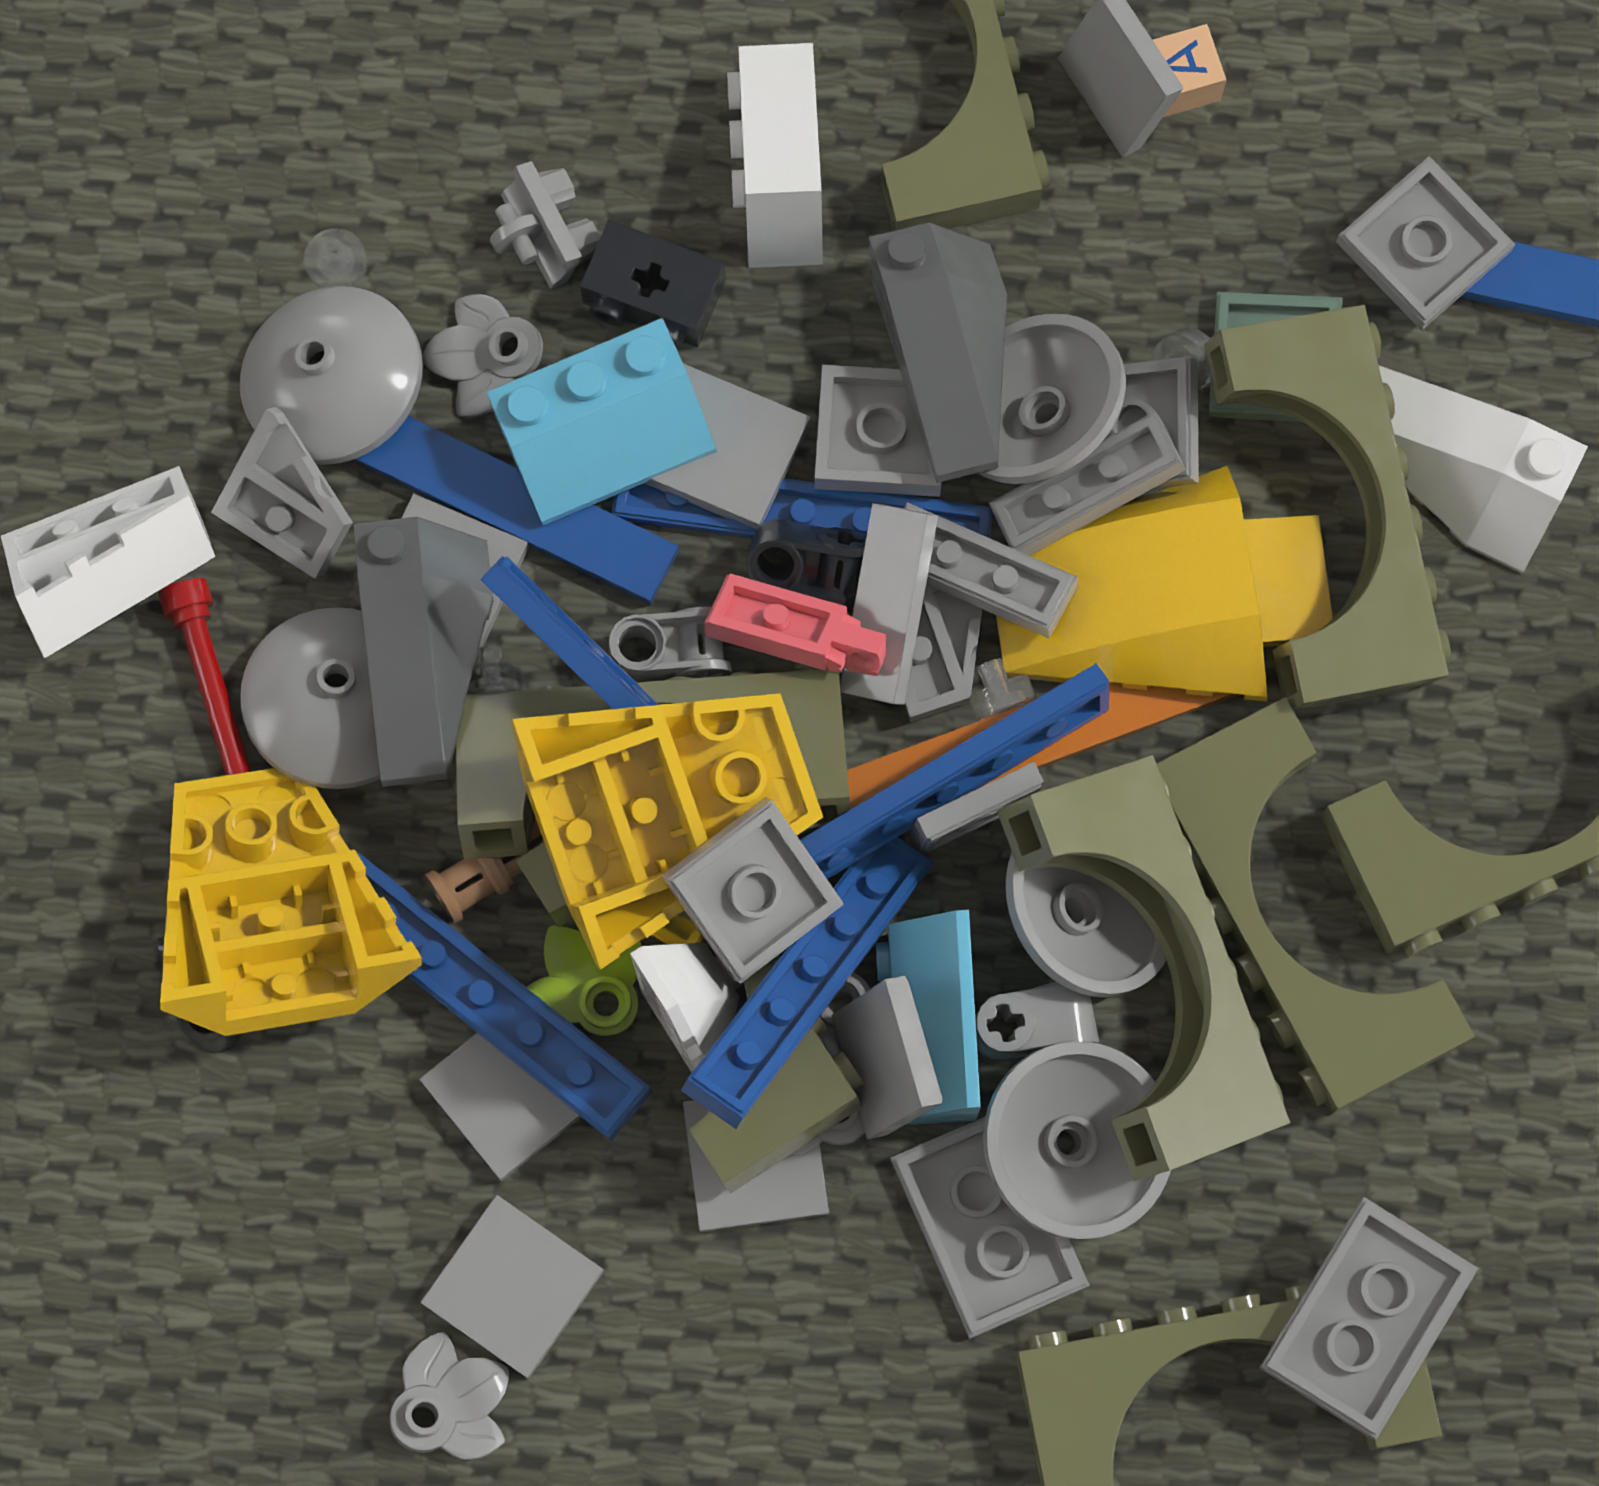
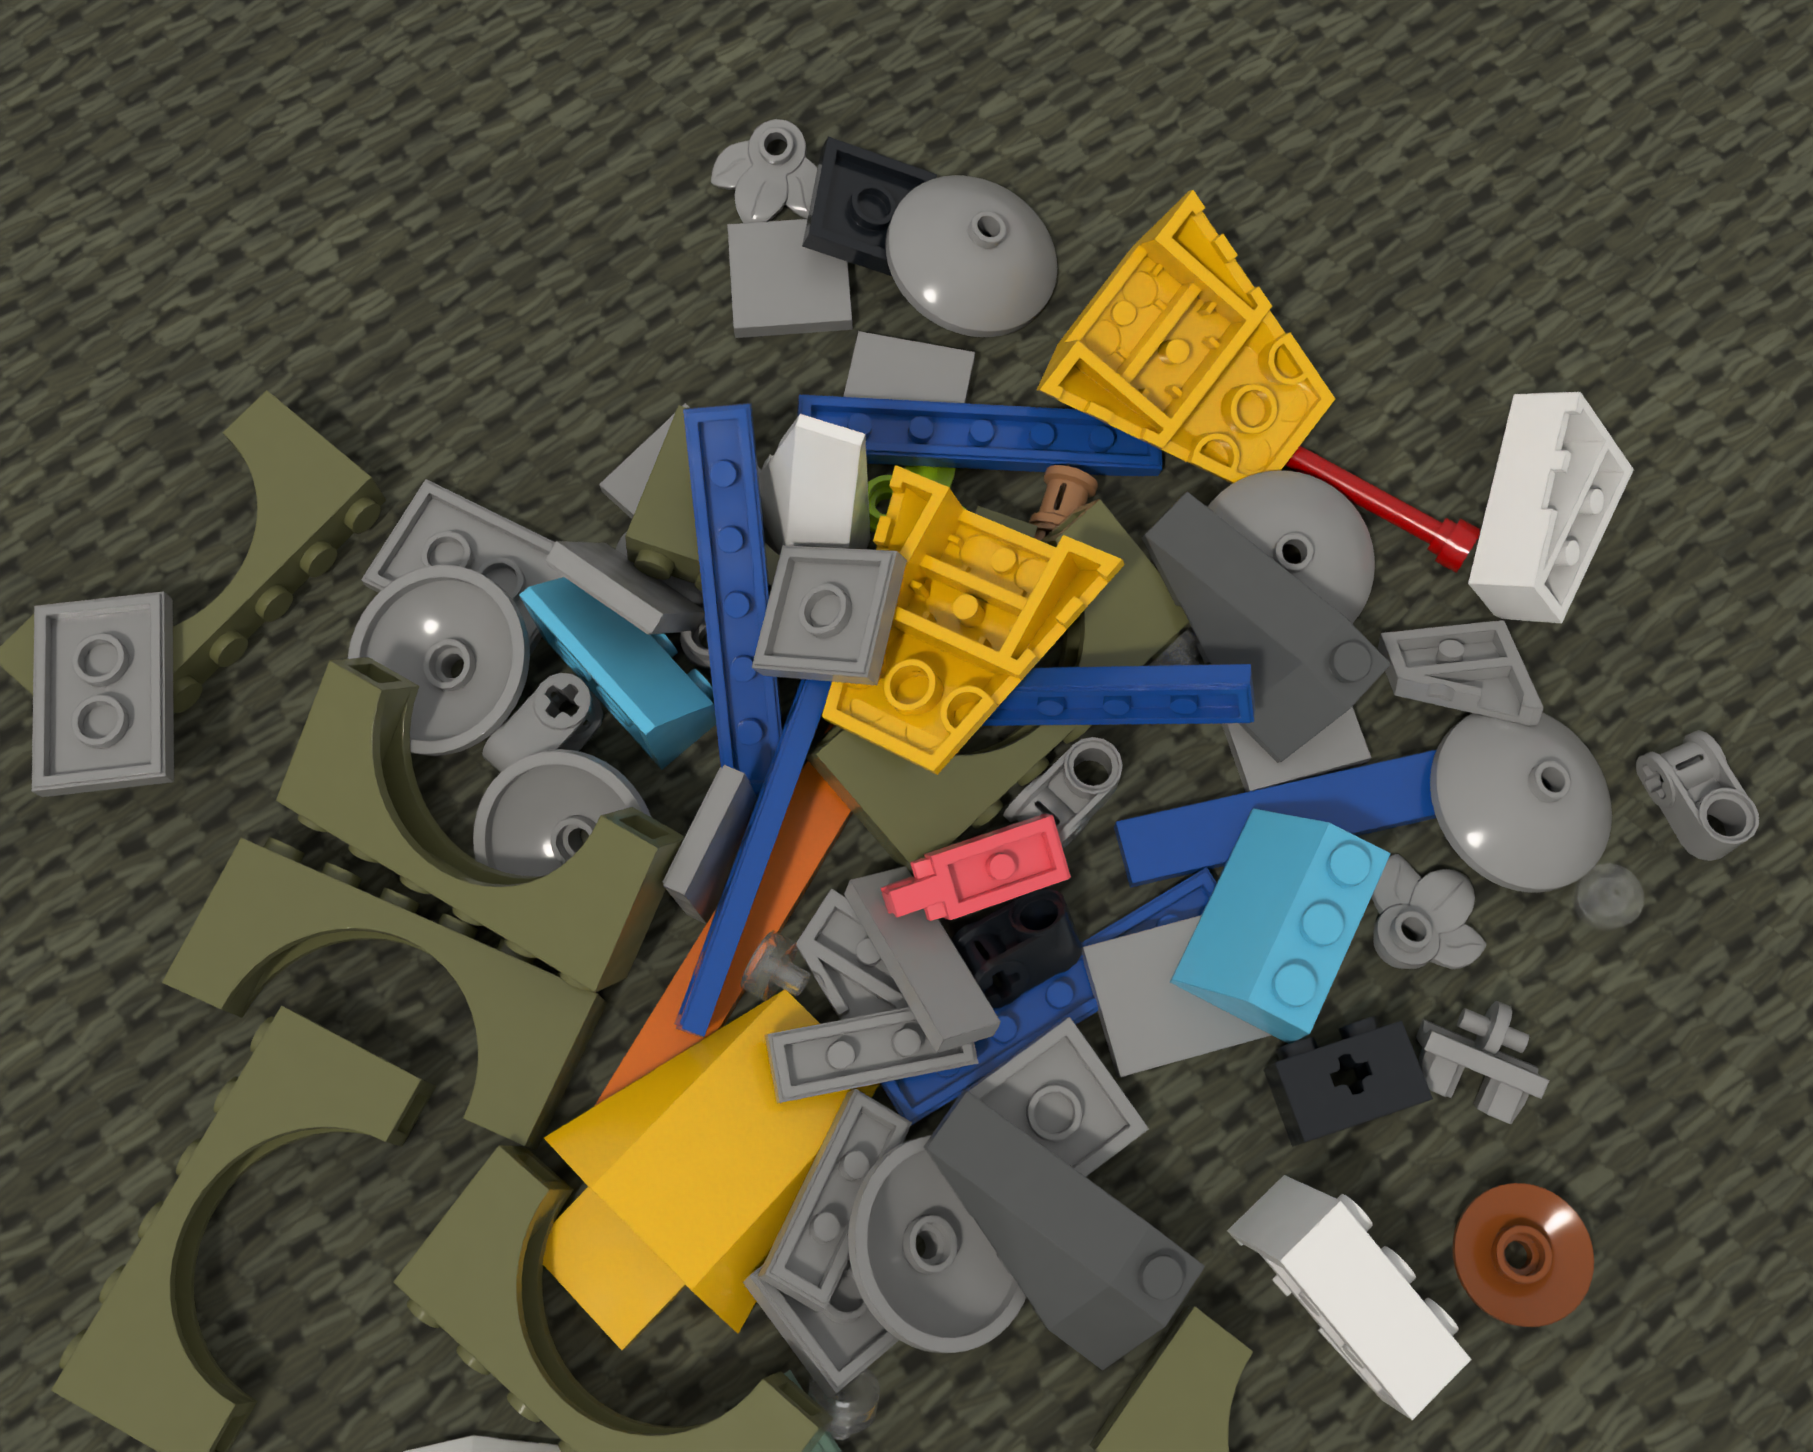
camera: 140 degrees right, 5 degrees down
(198, 283) = (1699, 791): none -> light grey piece
(373, 1189) = (958, 273): none -> light grey dish
(397, 1279) = (855, 203): none -> black plate
(628, 57) = (1556, 1247): none -> dark orange dish

